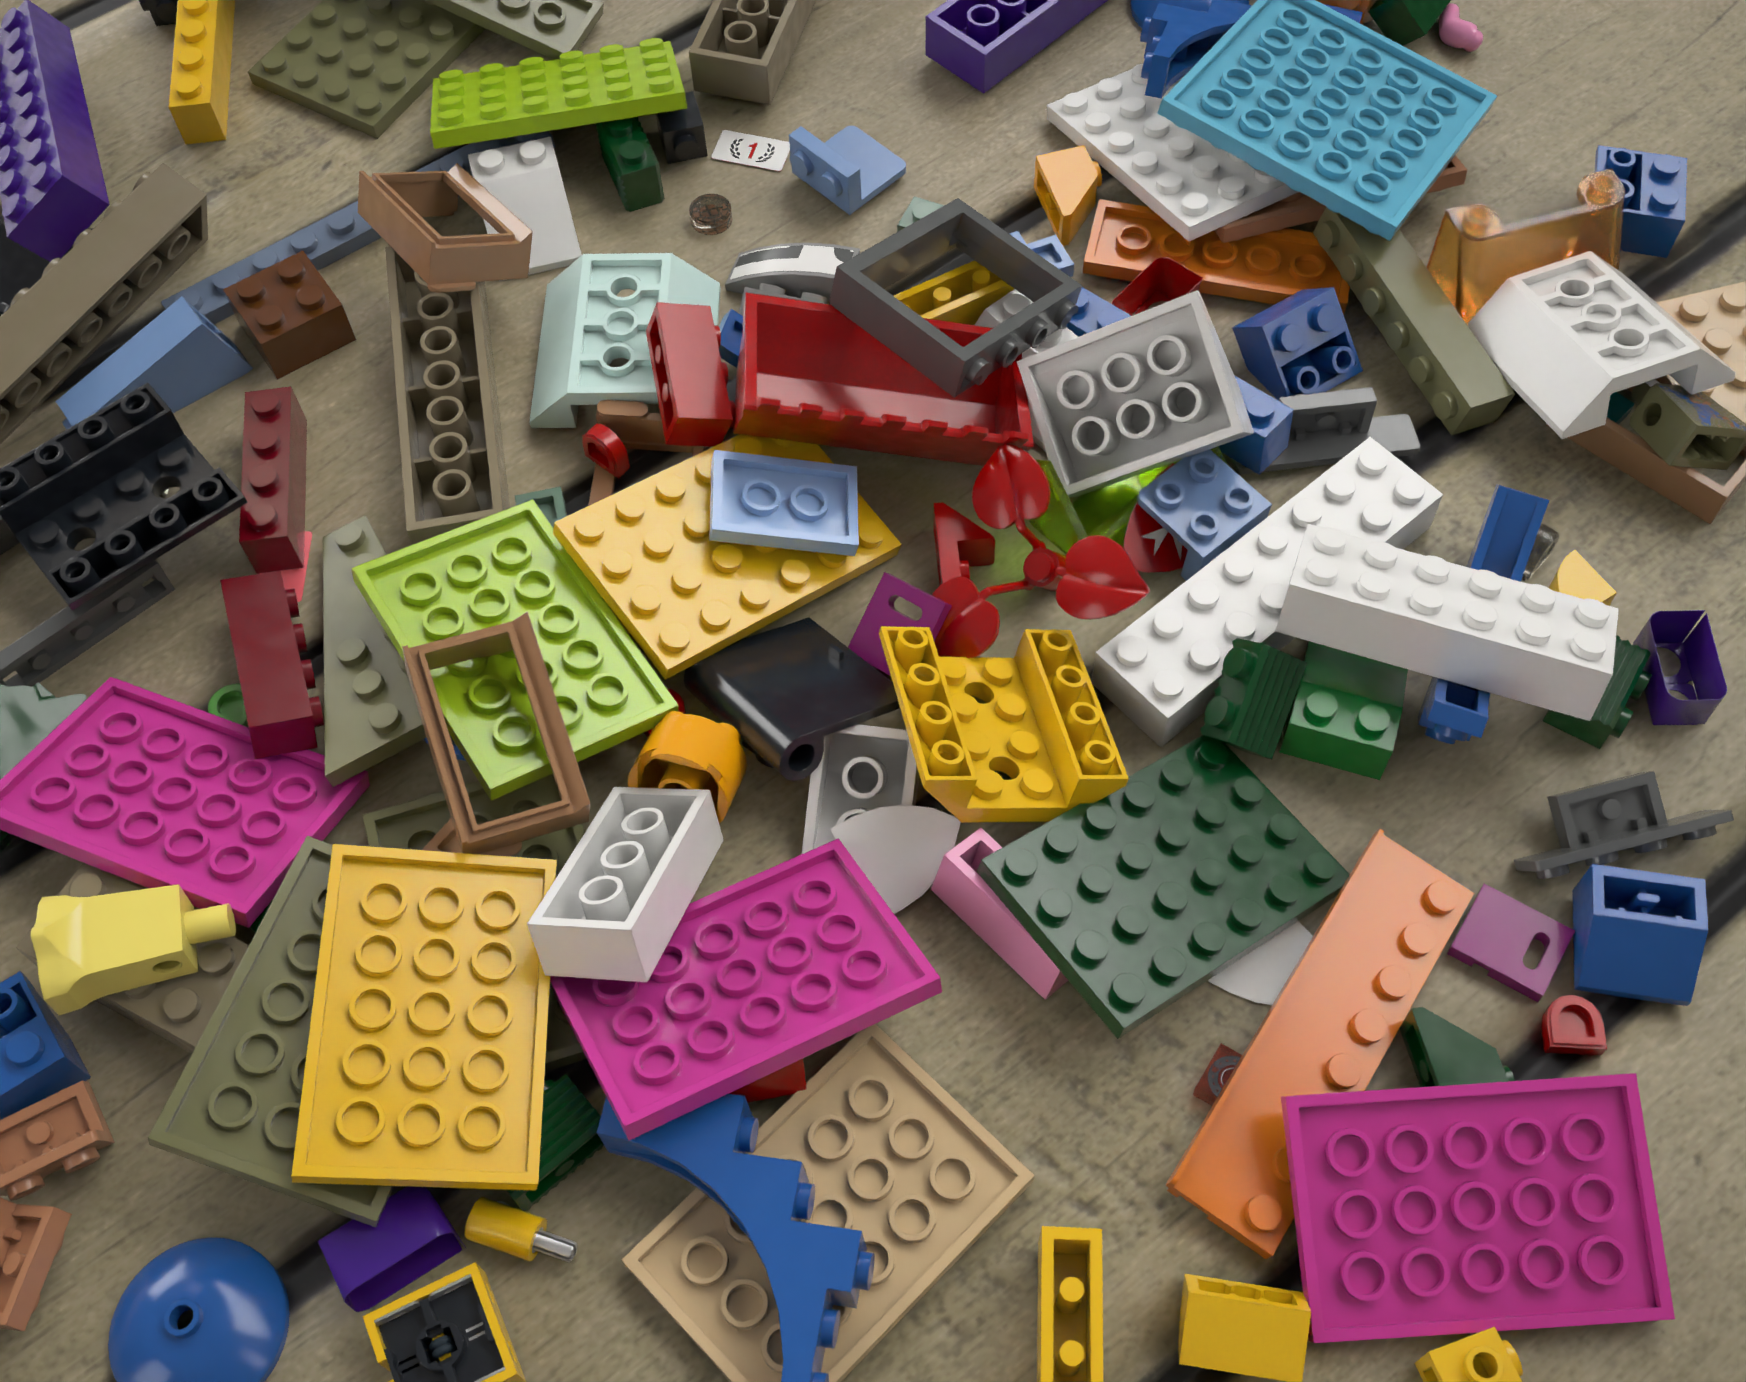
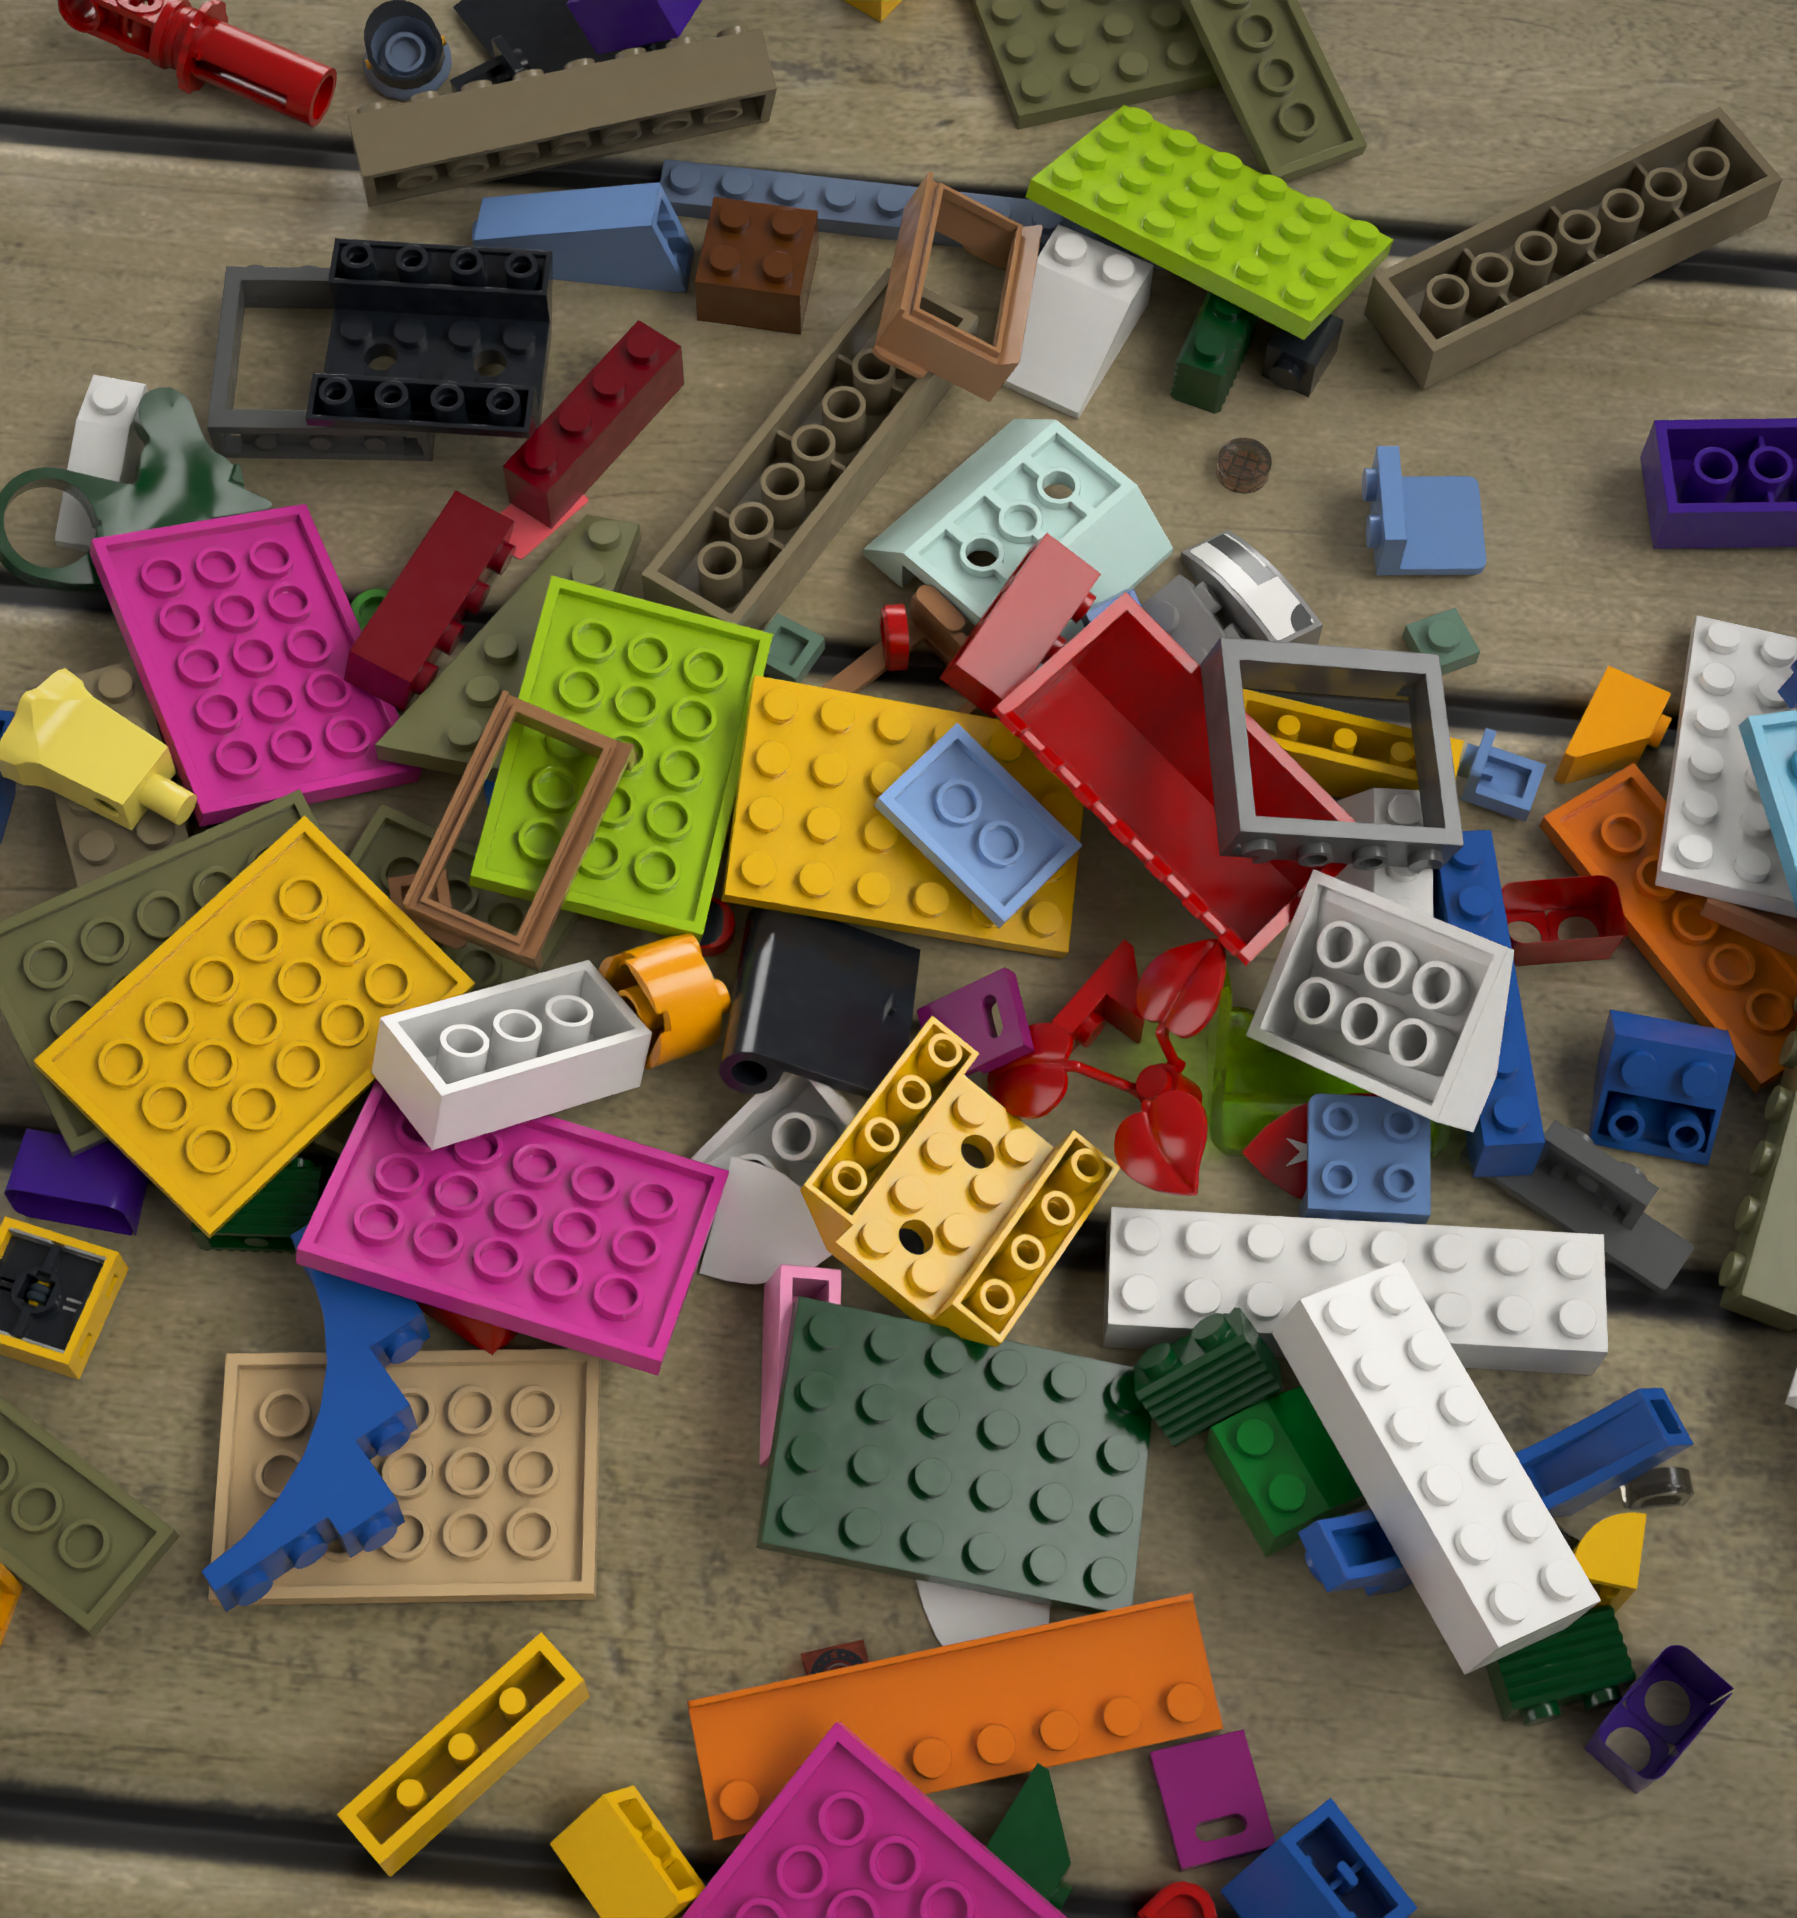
camera: 40 degrees right, 5 degrees up
(514, 1232) = (175, 1257): yellow piece -> none
(751, 150) = (1354, 423): white sticker -> none
(1614, 817) = (1425, 1788): dark grey bracket -> none

